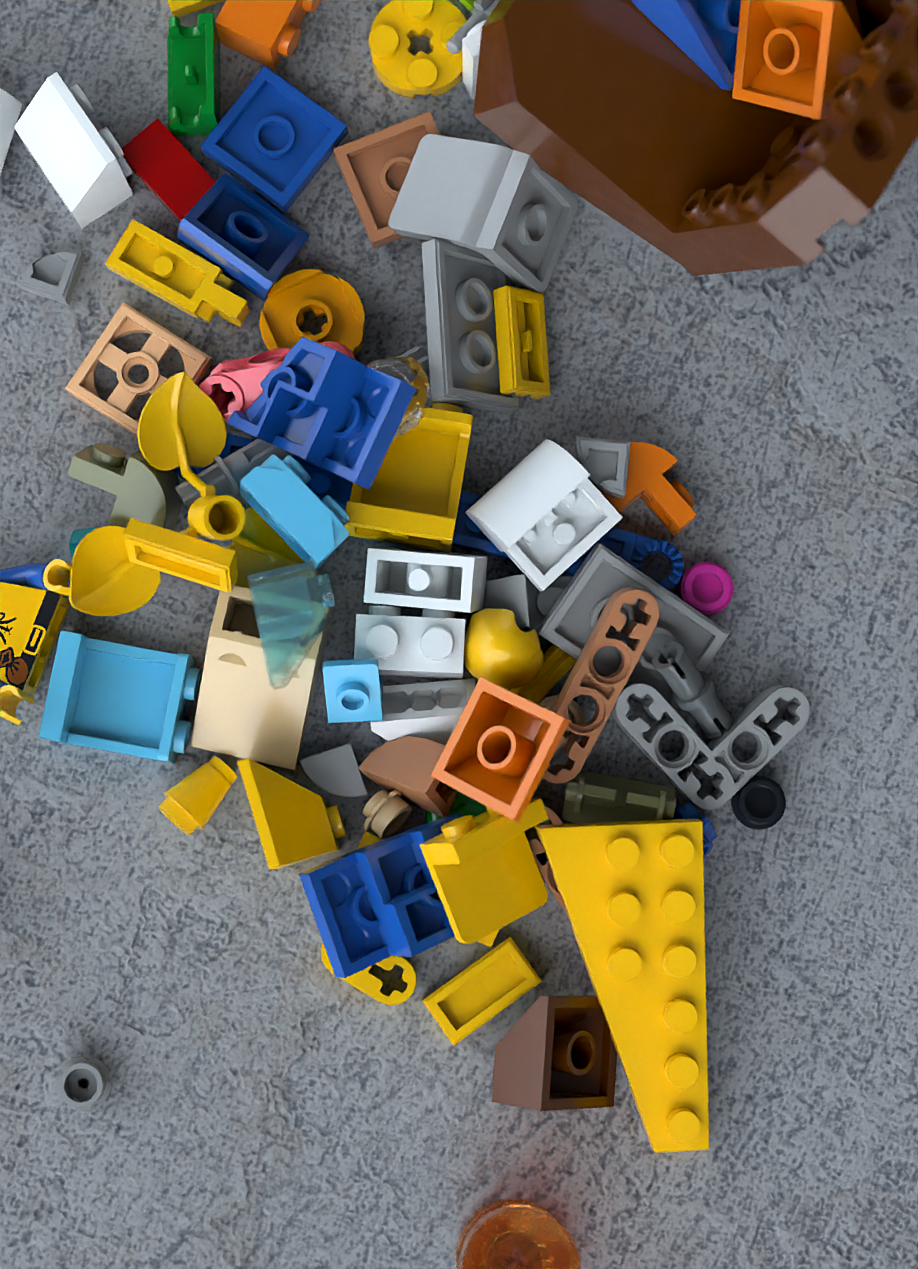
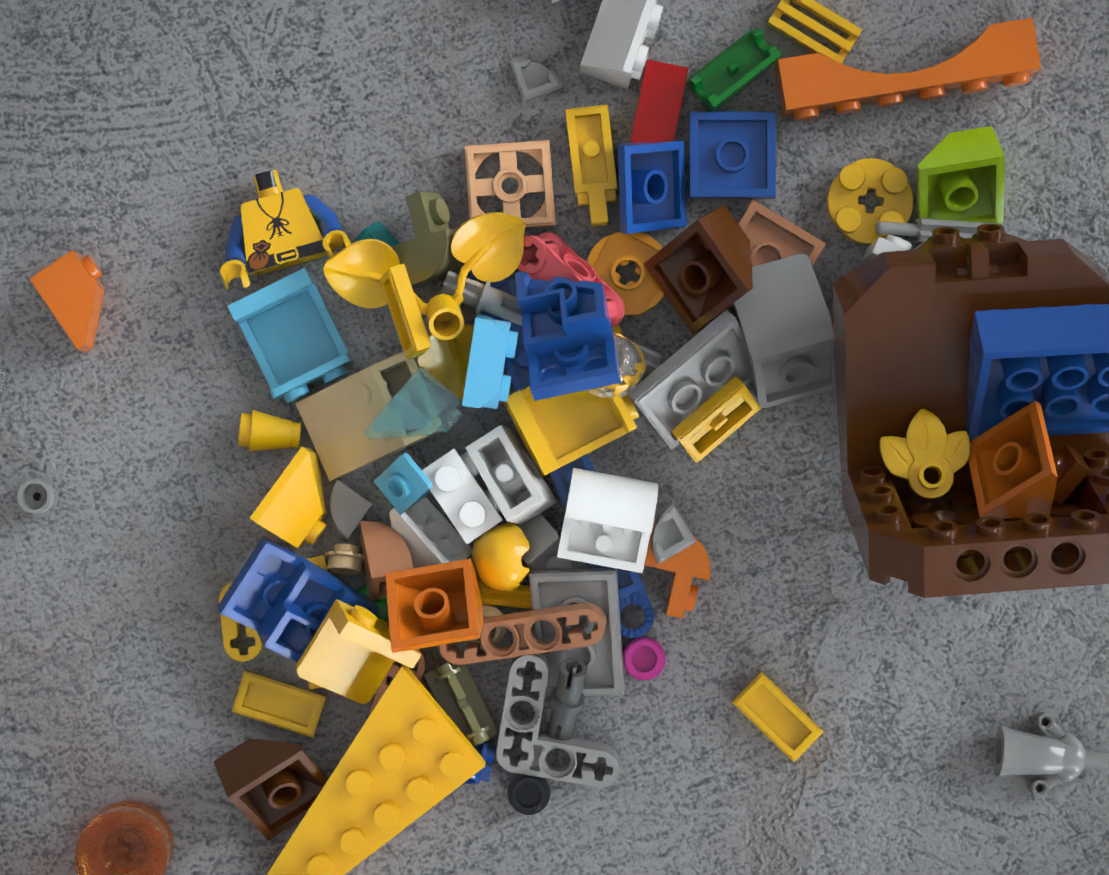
camera: 60 degrees right, 5 degrees up
(365, 238) = (704, 268): none -> reddish brown slope
(707, 137) = (924, 448): none -> yellow plate
(859, 501) = (777, 716): none -> yellow tile

